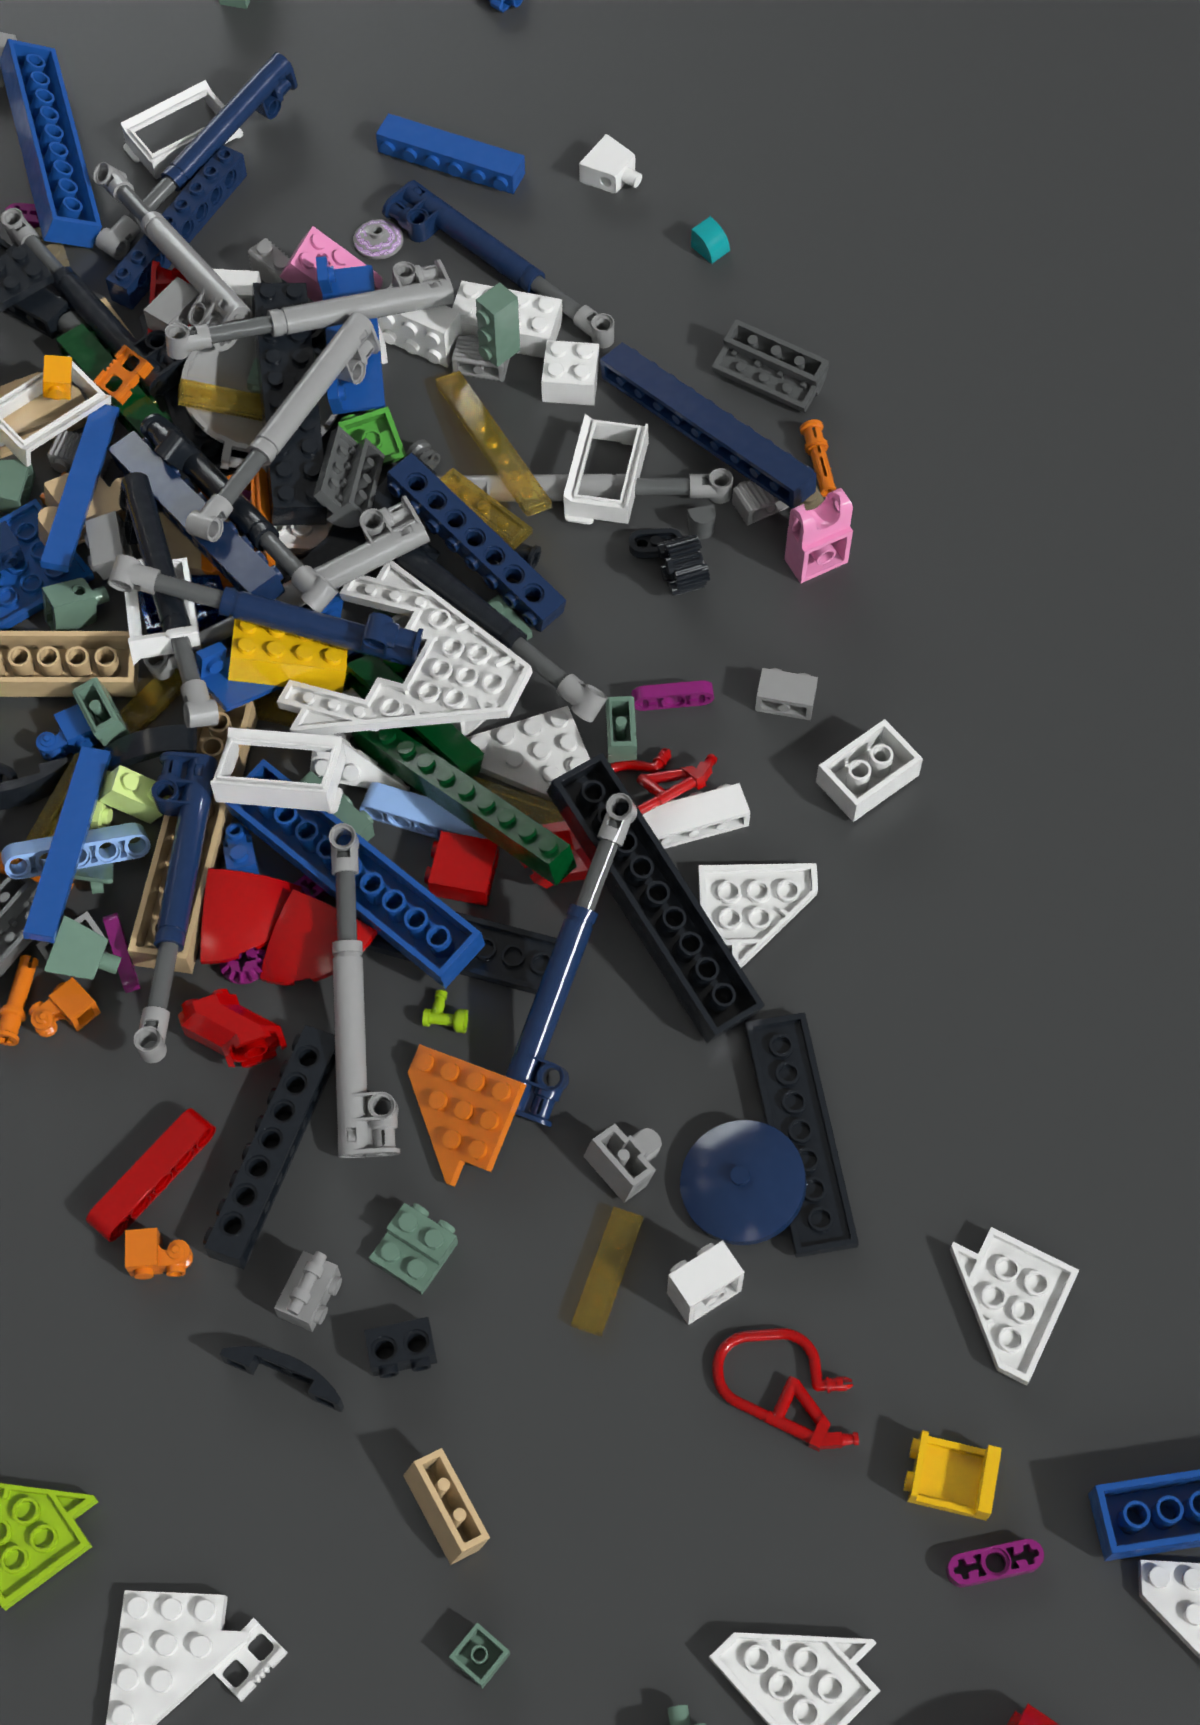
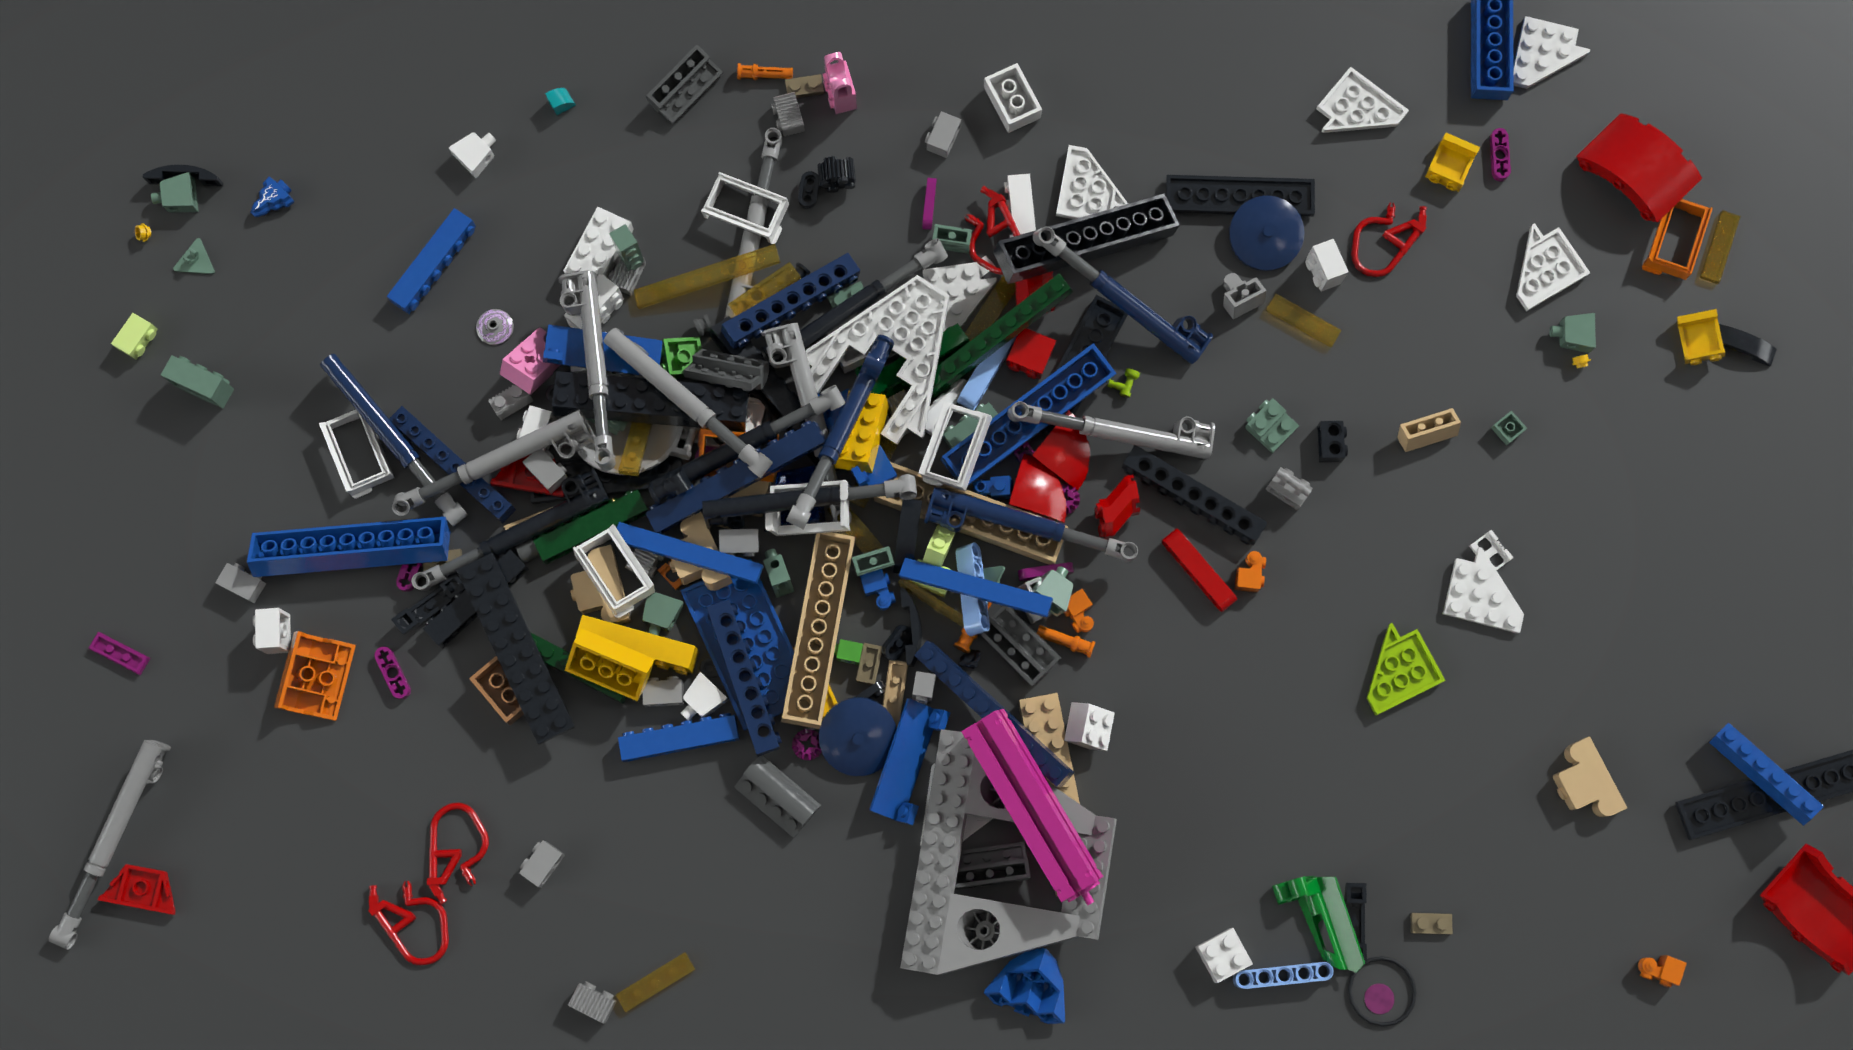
camera: 80 degrees left, 15 degrees up
(57, 377) = (598, 554): light orange brick -> none
(129, 378) = (600, 509): orange piece -> none
(249, 1357) = (1324, 526): black slope -> none
(425, 213) = (478, 289): dark blue piece -> none
(463, 1109) = (1192, 381): orange wing -> none
(570, 372) = (656, 215): white brick -> none
(702, 521) = (799, 156): dark grey brick -> none
(709, 425) = (727, 134): dark blue brick -> none

